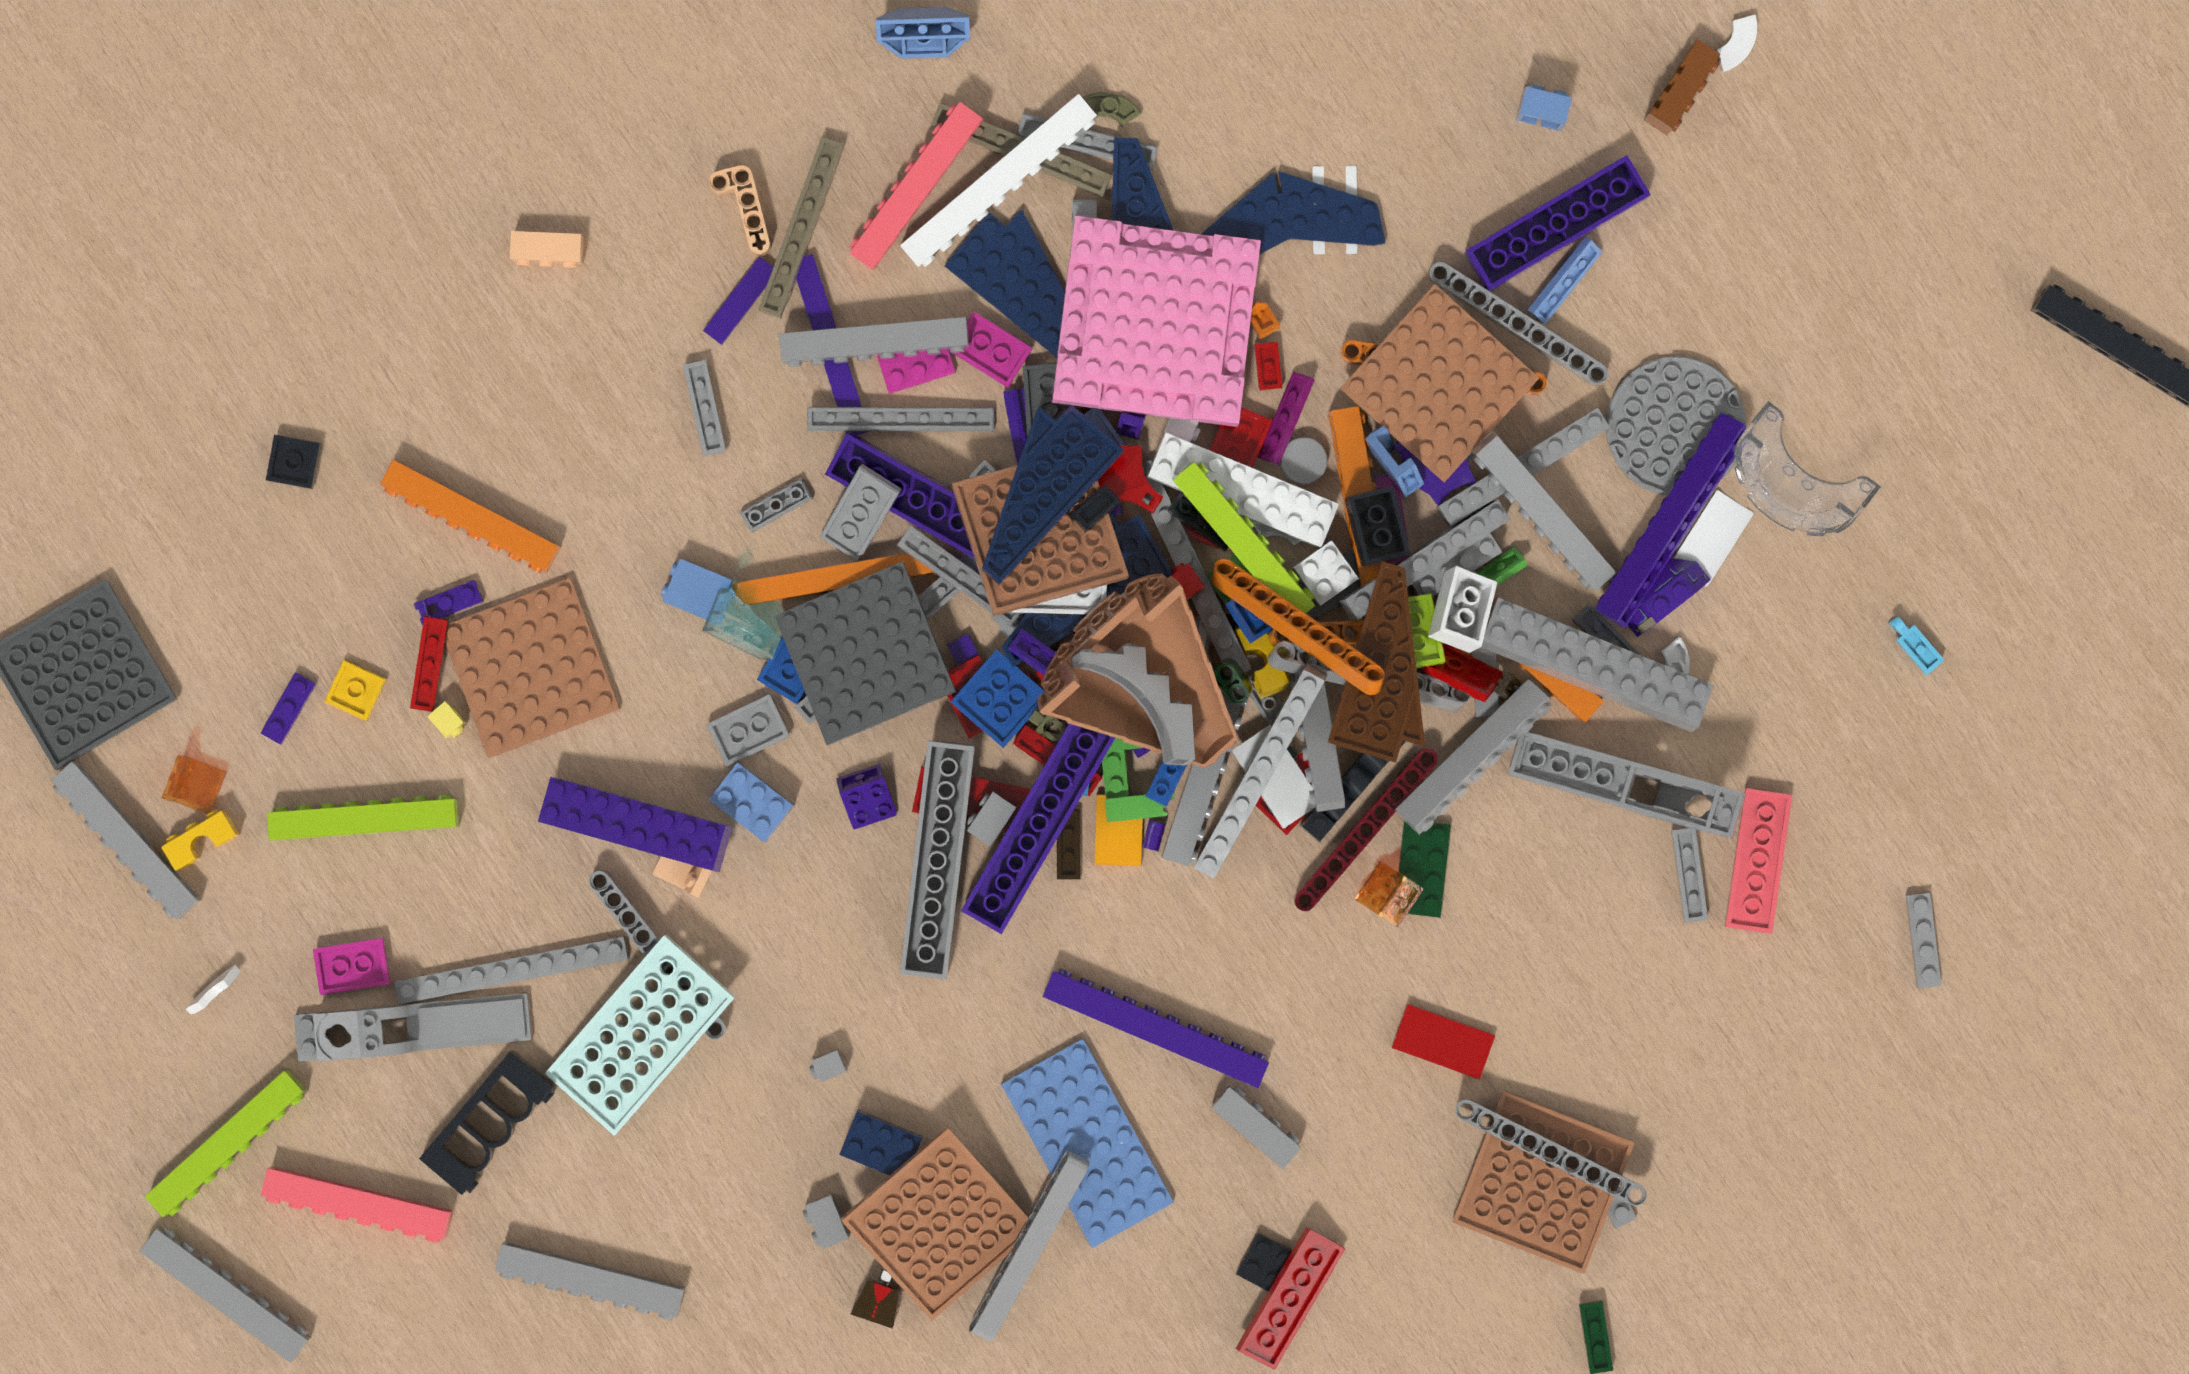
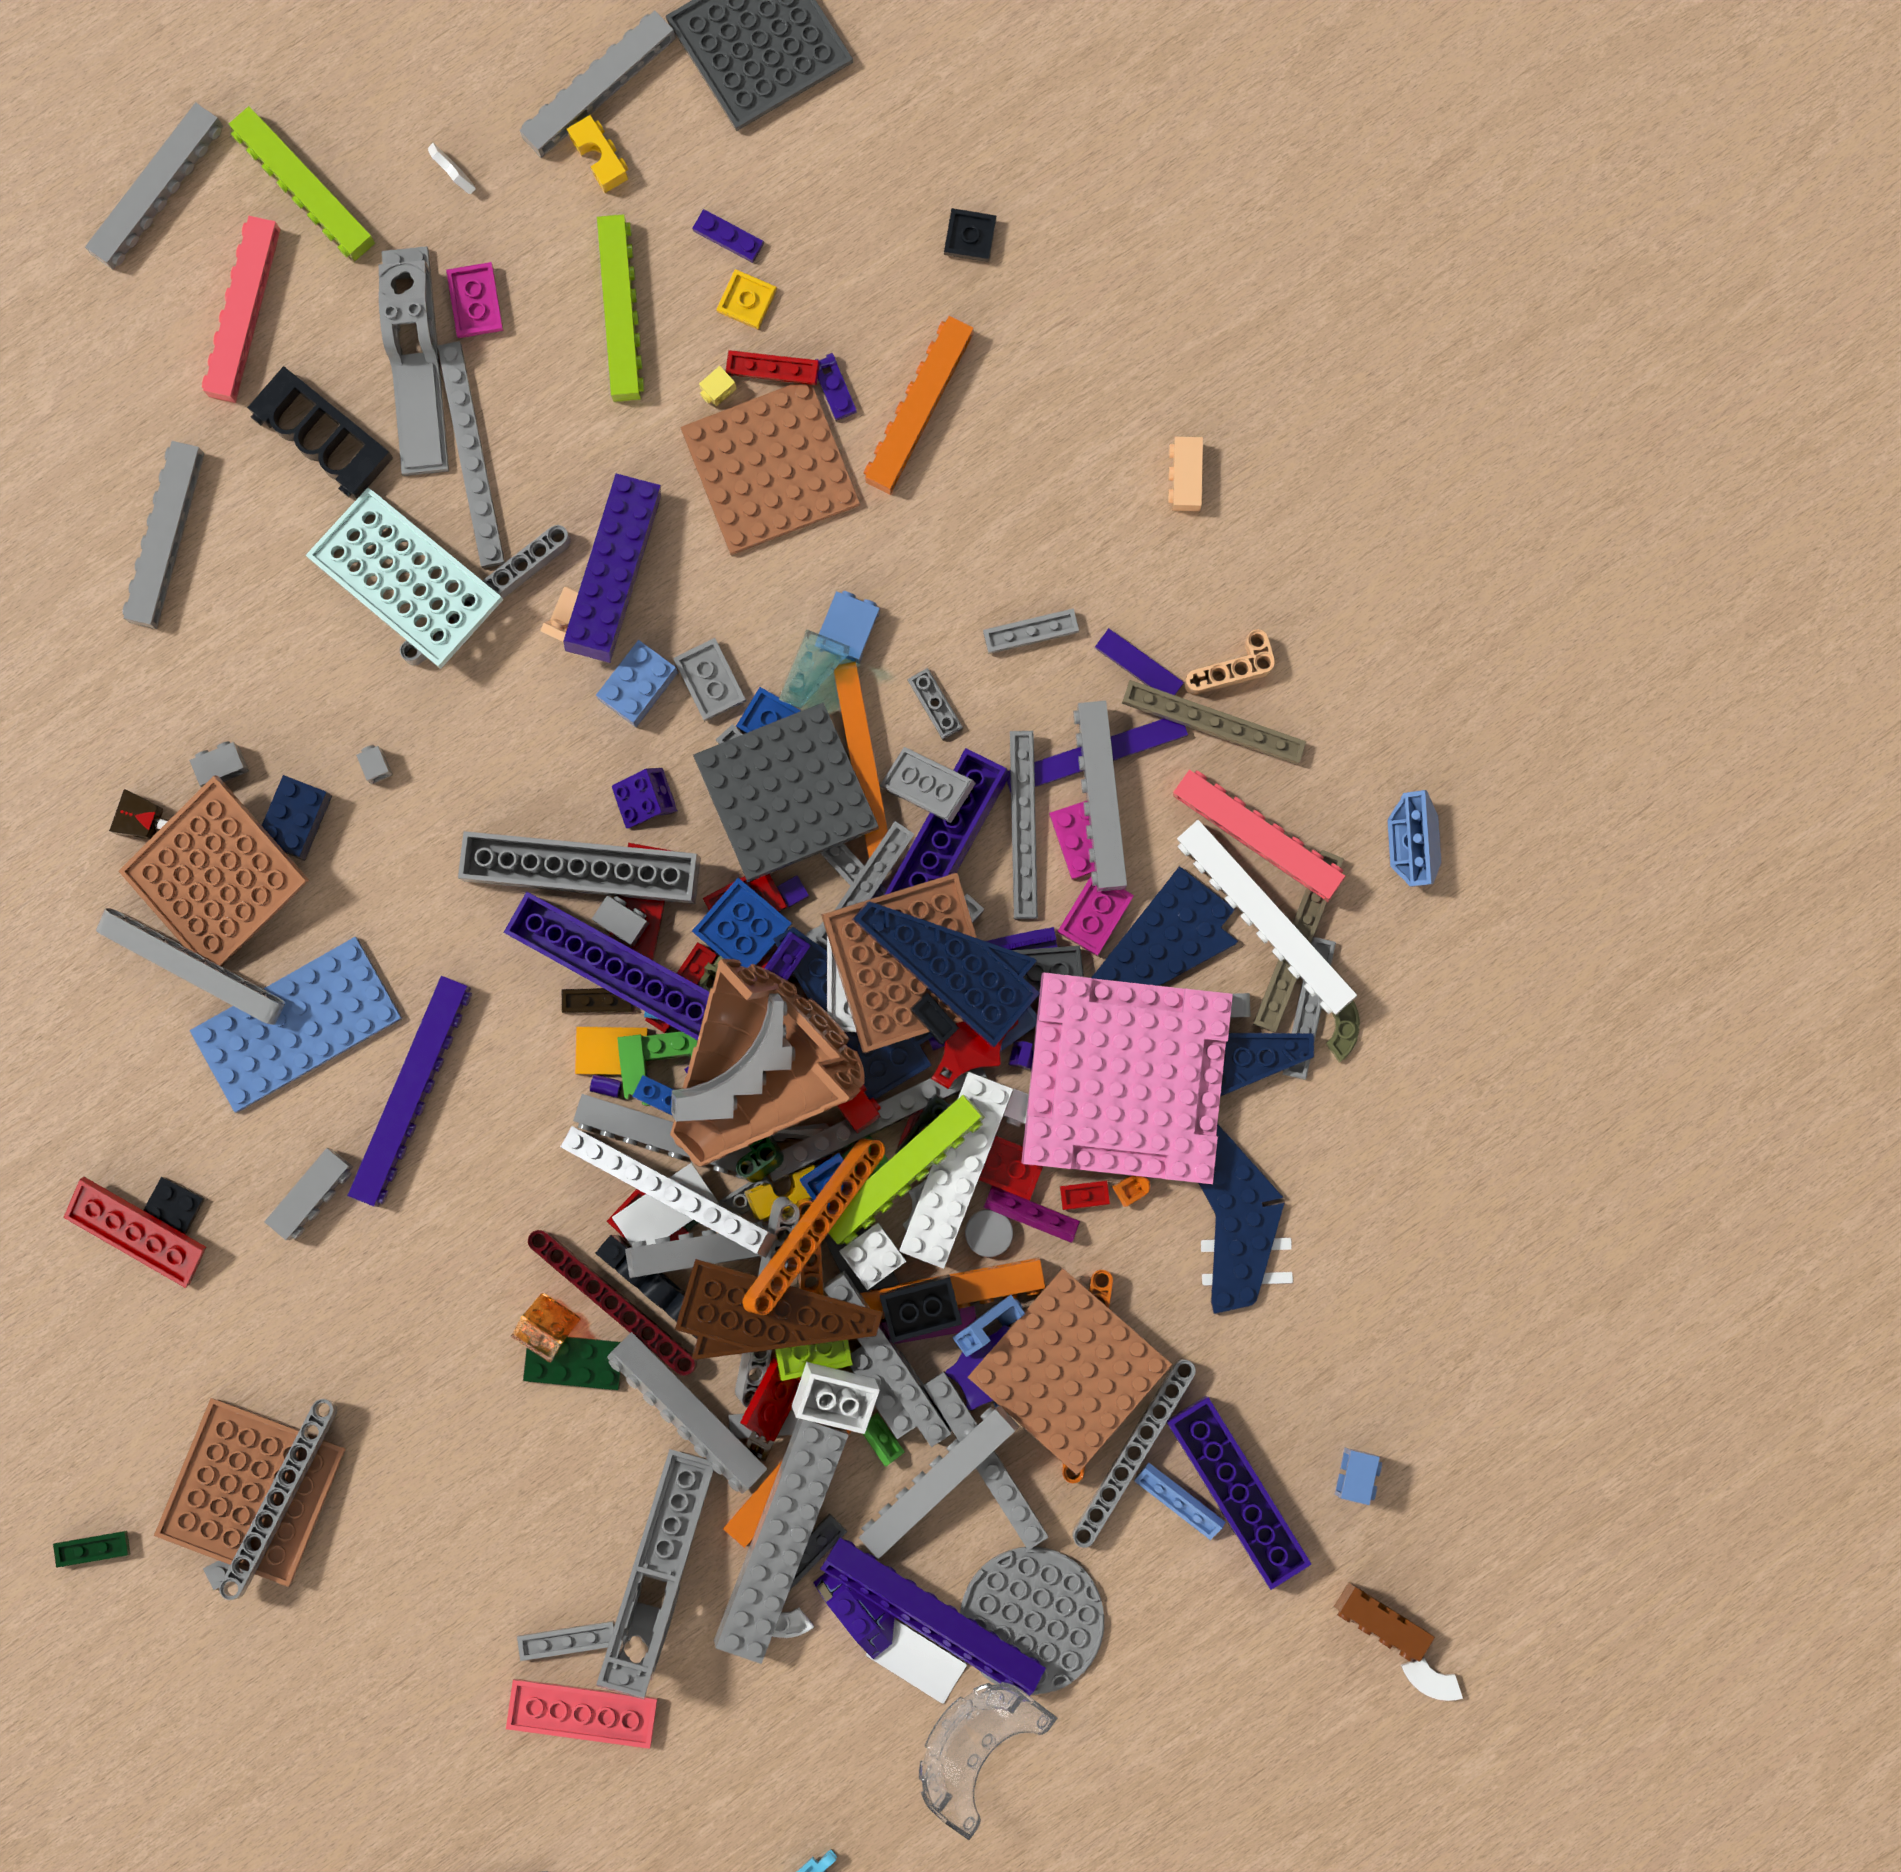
camera: 90 degrees right, 5 degrees down
(194, 784) = (653, 145): clear orange bracket -> none
(1443, 1041) = (396, 1386): red tile -> none

